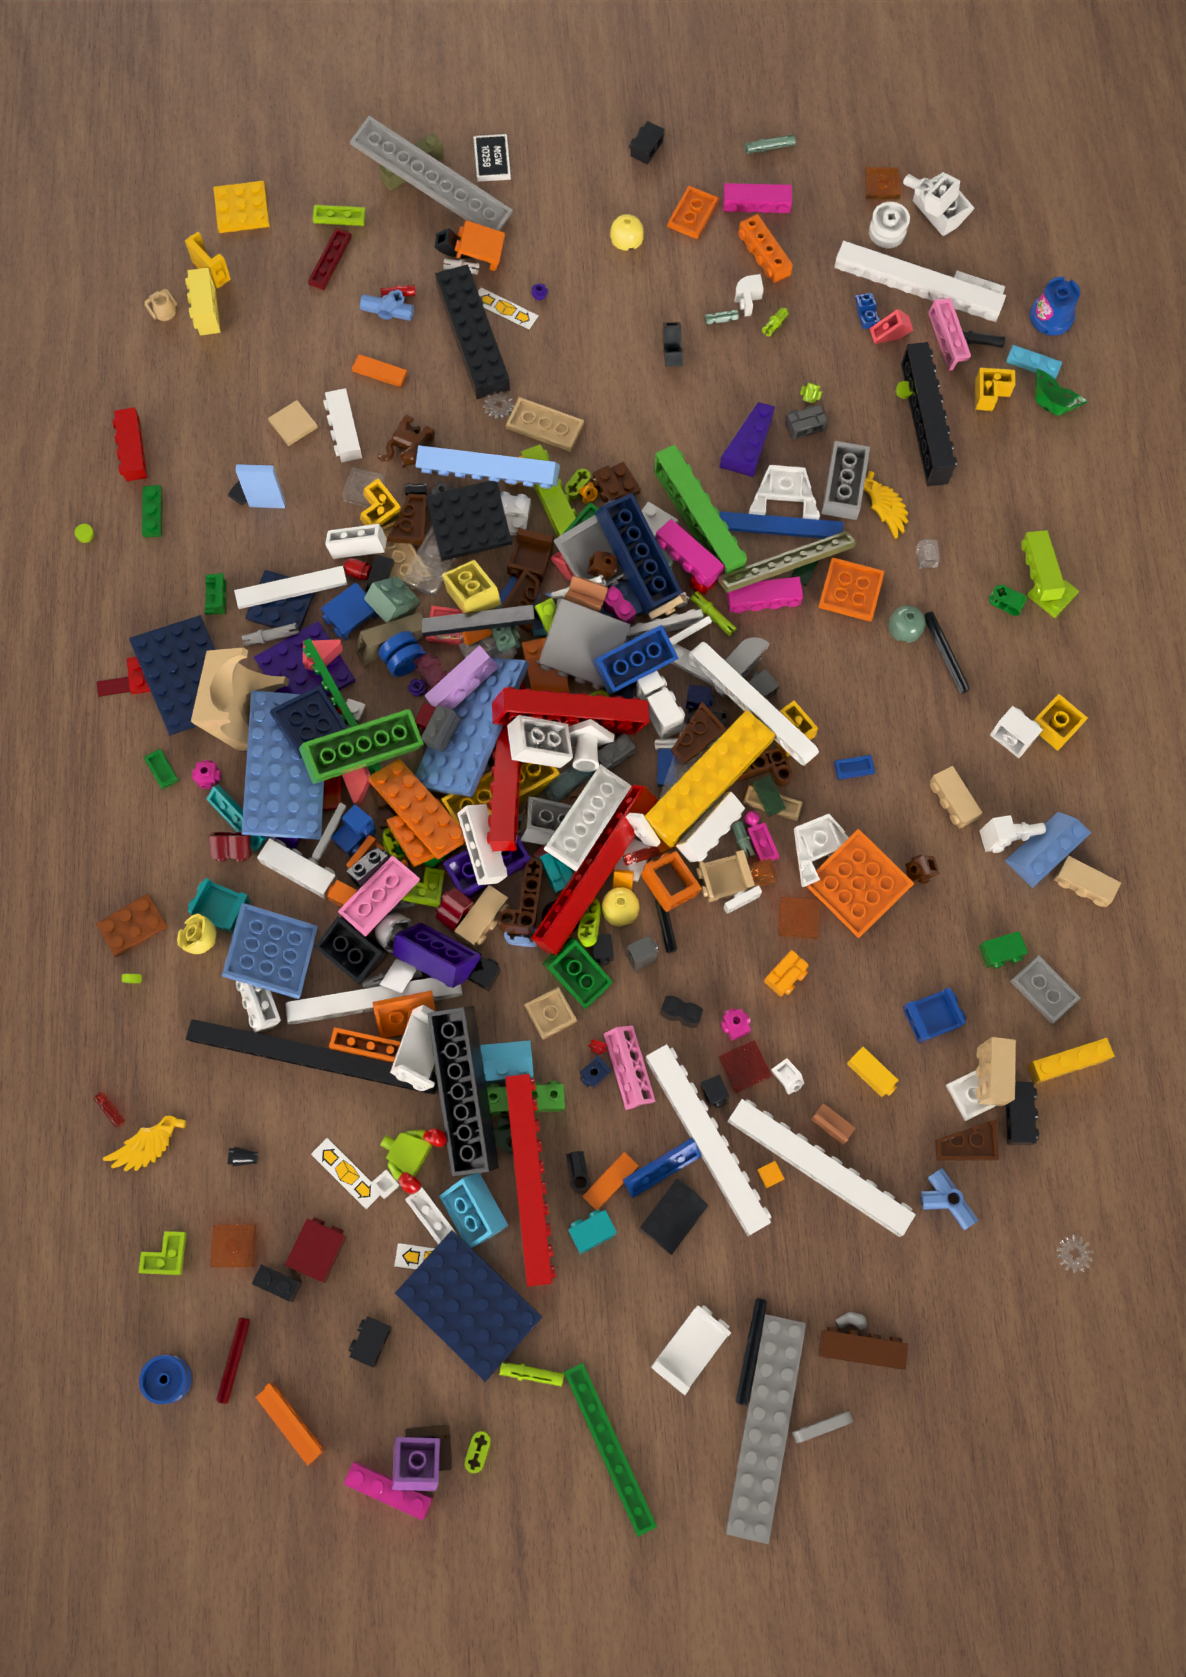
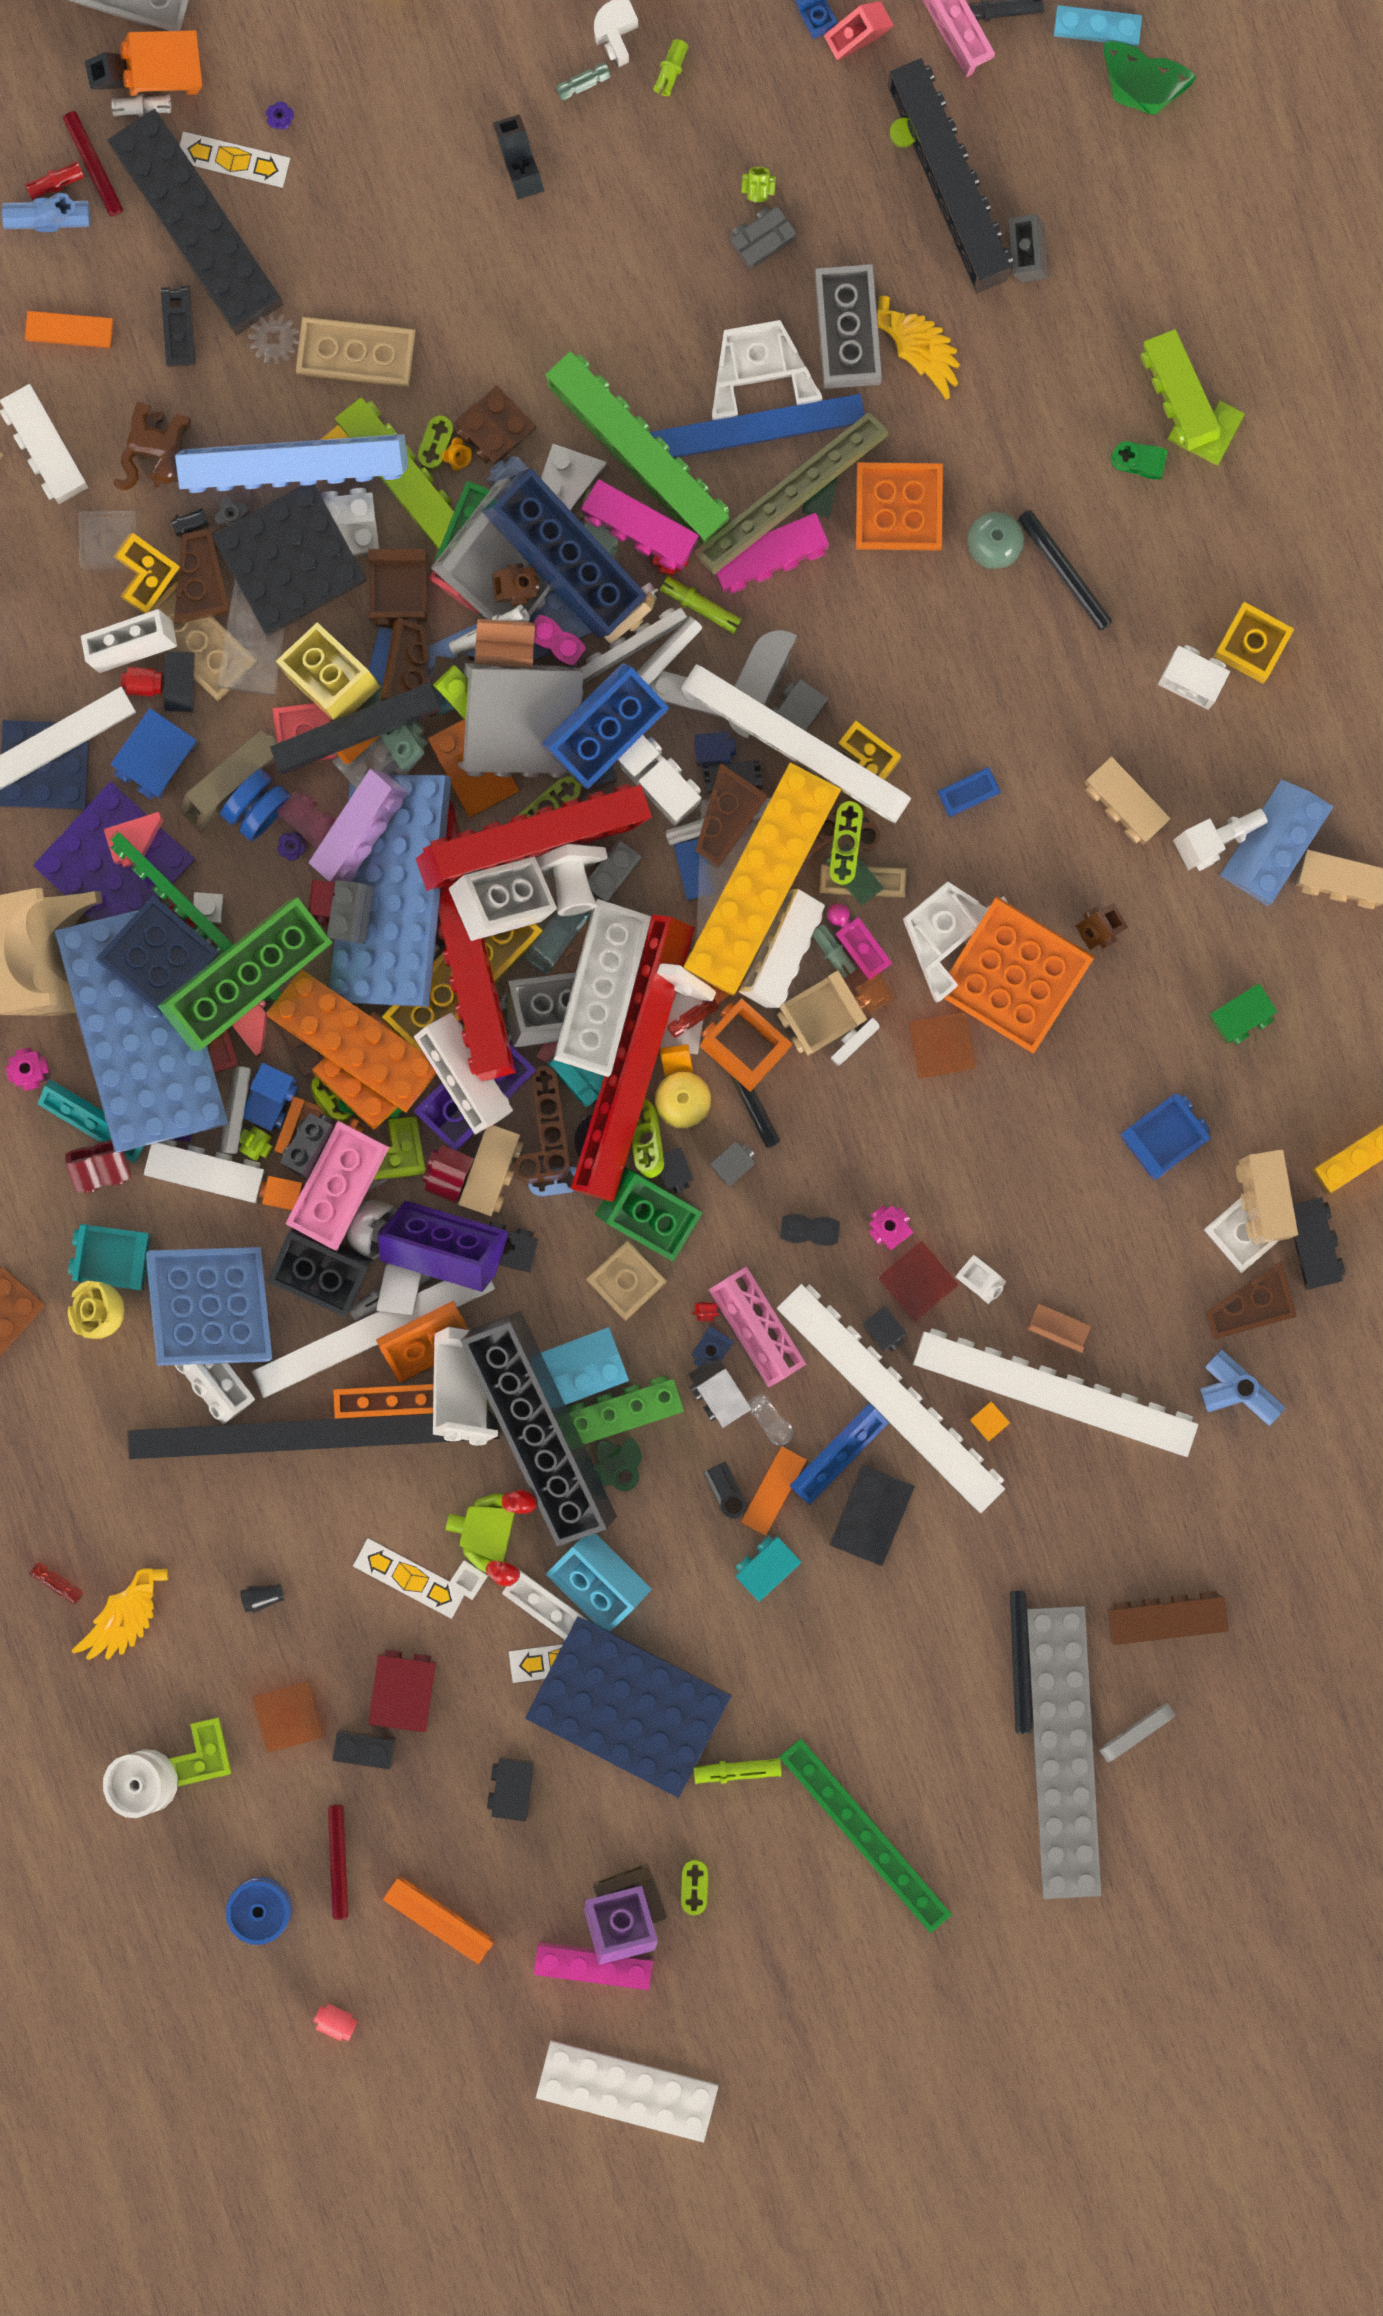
camera: 15 degrees left, 15 degrees up
(114, 1262) = (140, 1783): none -> white wheel
(131, 978) = (23, 1395): lime tile -> none
(192, 1479) = (335, 2022): none -> coral brick
(270, 634) = (37, 829): light grey pin -> none
(335, 858) = (255, 1143): none -> lime gear
(385, 1595) = (627, 2091): none -> white plate
(392, 599) = (213, 722): sand green brick -> none
(423, 289) = (92, 163): none -> dark red axle
(444, 384) = (178, 327): none -> black plate
(528, 1180) = (662, 1521): red brick -> none
(592, 1101) = (719, 1392): none -> brick
(622, 1135) = (772, 1423): none -> clear piece
(691, 1348) = (939, 1681): white panel -> none
(747, 445) = (682, 304): dark purple wedge -> none
(769, 757) = (851, 865): none -> lime beam
(786, 974) = (944, 1133): light orange brick -> none
(852, 1318) = (1145, 1582): light grey arm -> none
(873, 1072) = (1098, 1242): yellow brick -> none
(928, 553) = (1001, 414): clear brick -> none
(966, 465) = (1028, 248): none -> dark grey brick
(991, 384) = (1035, 92): yellow brick -> none
(1045, 989) = (1314, 1054): light grey tile -> none

